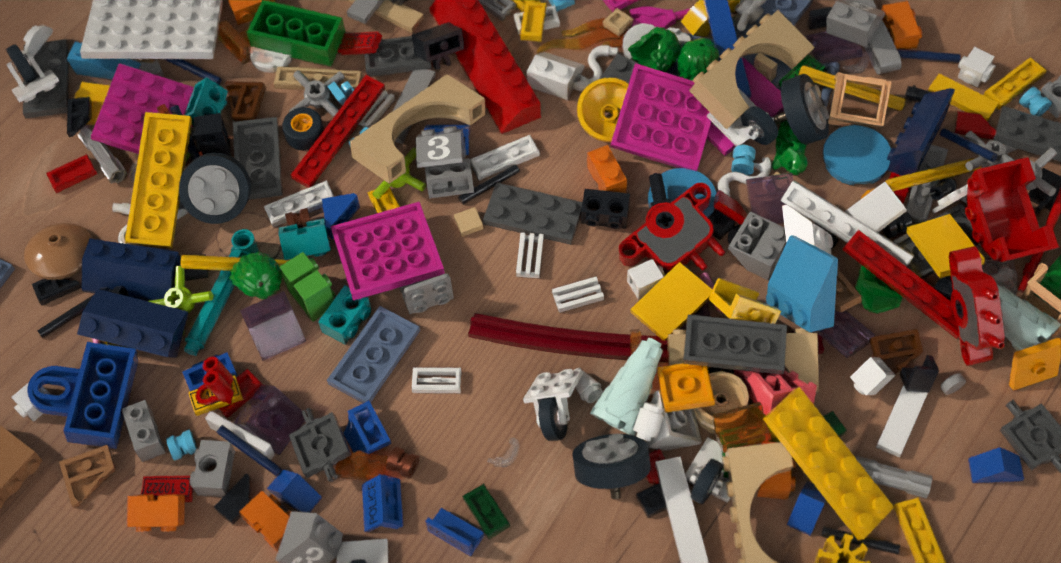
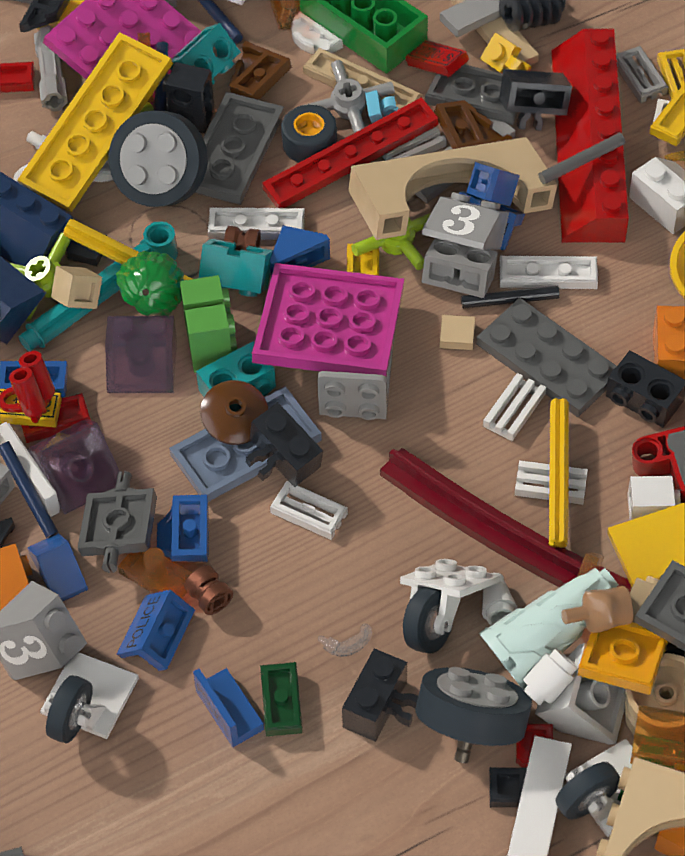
camera: 25 degrees right, 5 degrees down
(207, 299) = (76, 287): none -> tan panel
(357, 348) = (226, 424): none -> reddish brown dish
(401, 24) = (503, 55): none -> yellow plate
(403, 346) = (284, 445): none -> black brick
(404, 83) = (465, 126): none -> reddish brown wing
(443, 115) = (492, 184): none -> blue slope
(487, 81) = (581, 158): none -> dark grey bar
(546, 481) = (377, 696): none -> black brick
(581, 287) = (559, 473): none -> yellow axle
(661, 365) = (602, 609): none -> medium nougat piece

